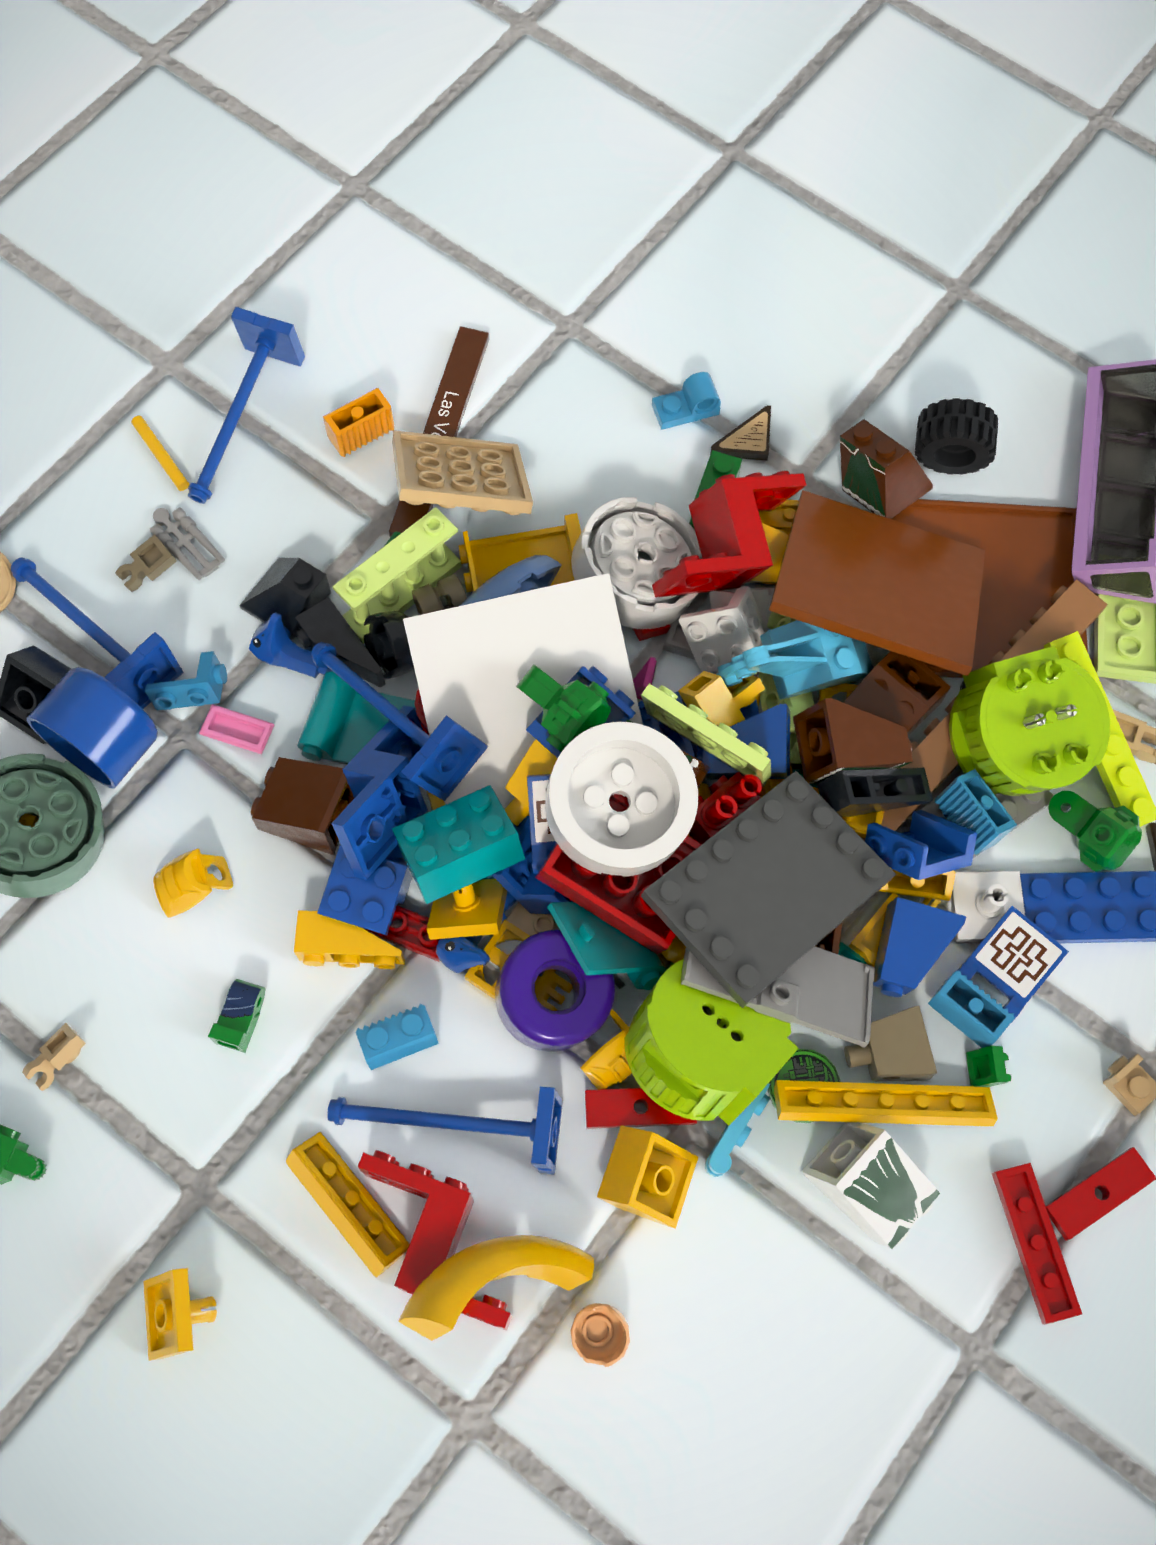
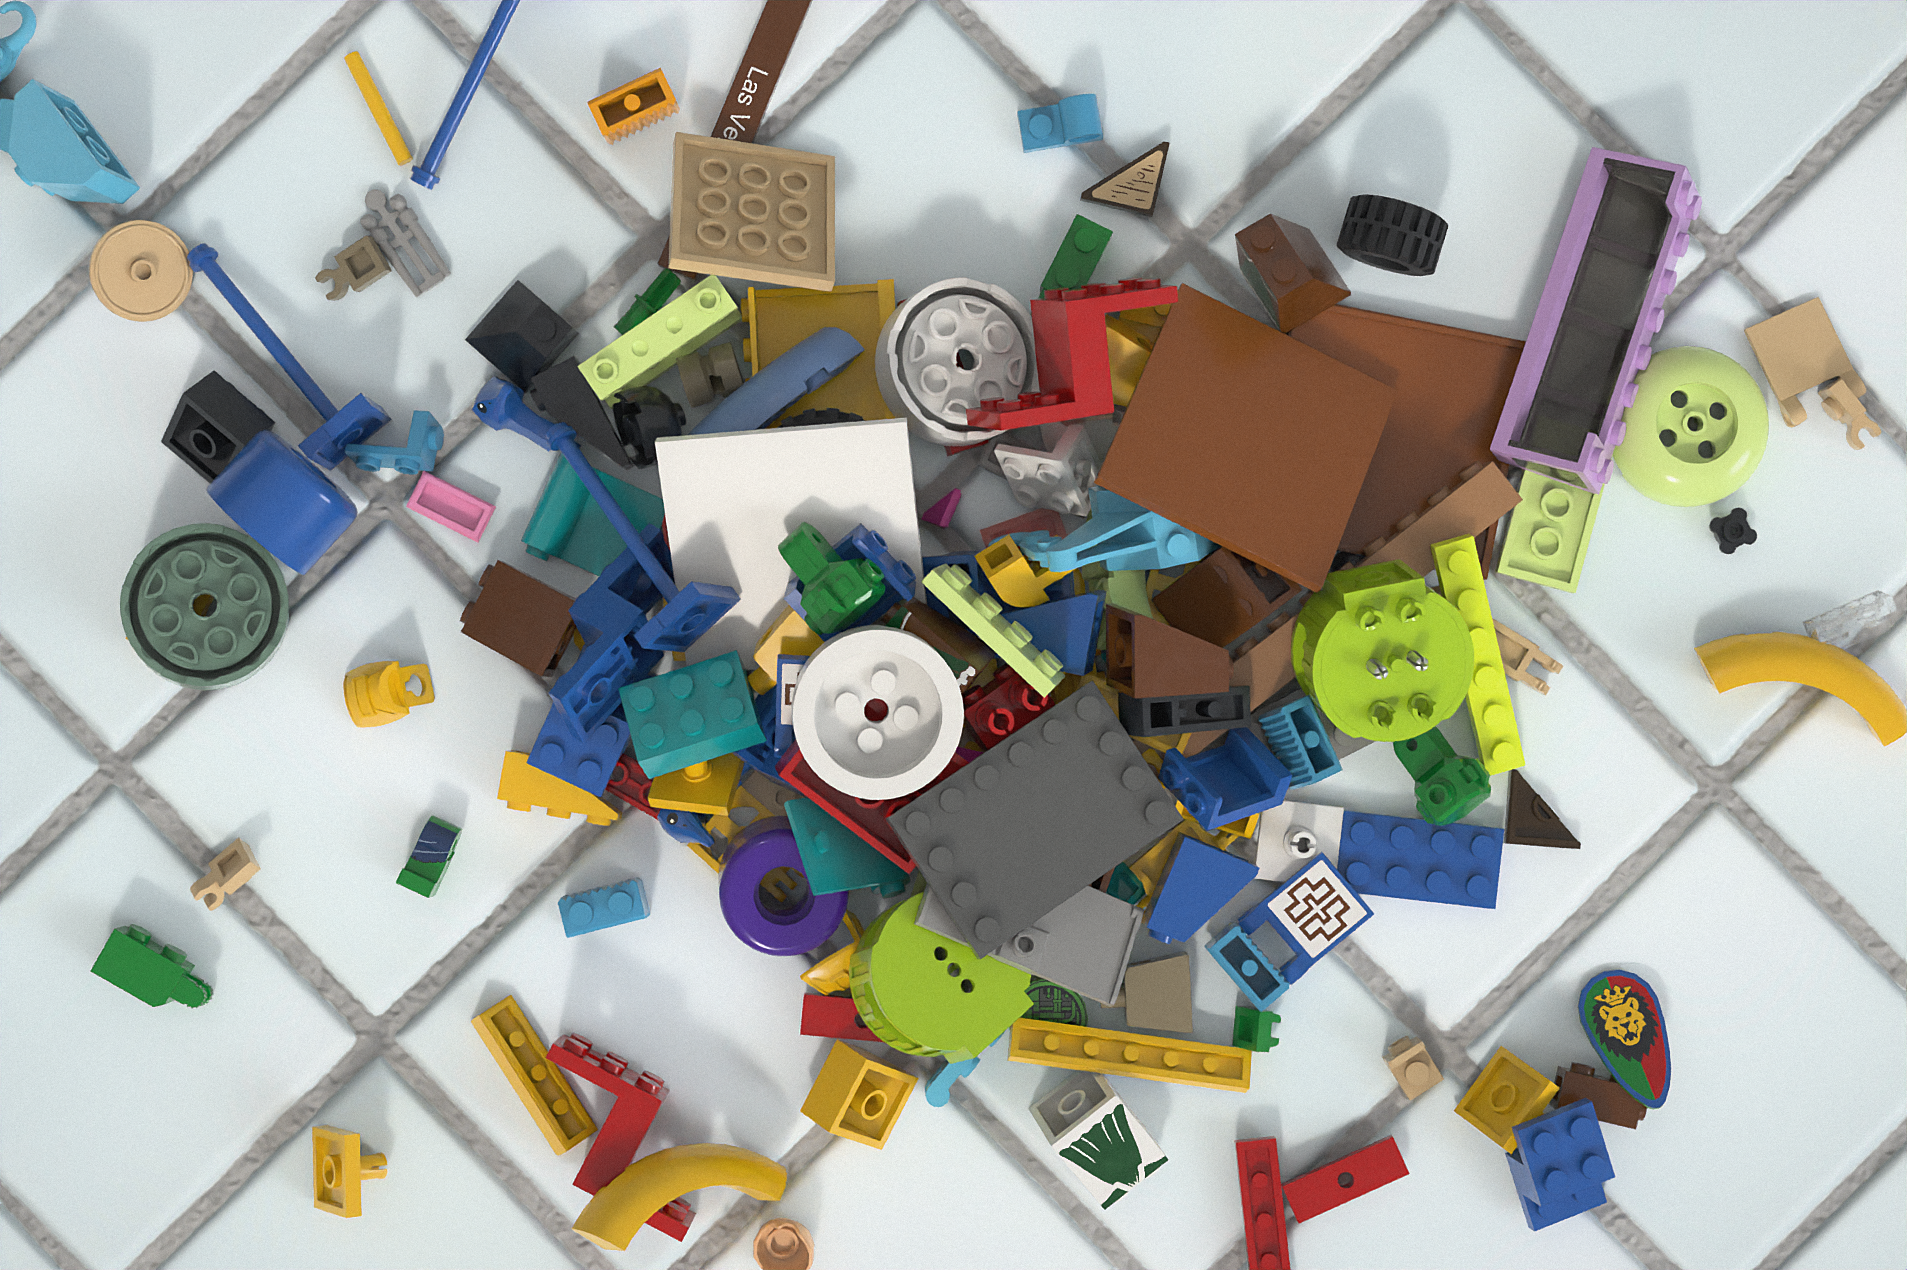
camera: 10 degrees right, 20 degrees up
(542, 1130) = (750, 1036): blue tile -> none

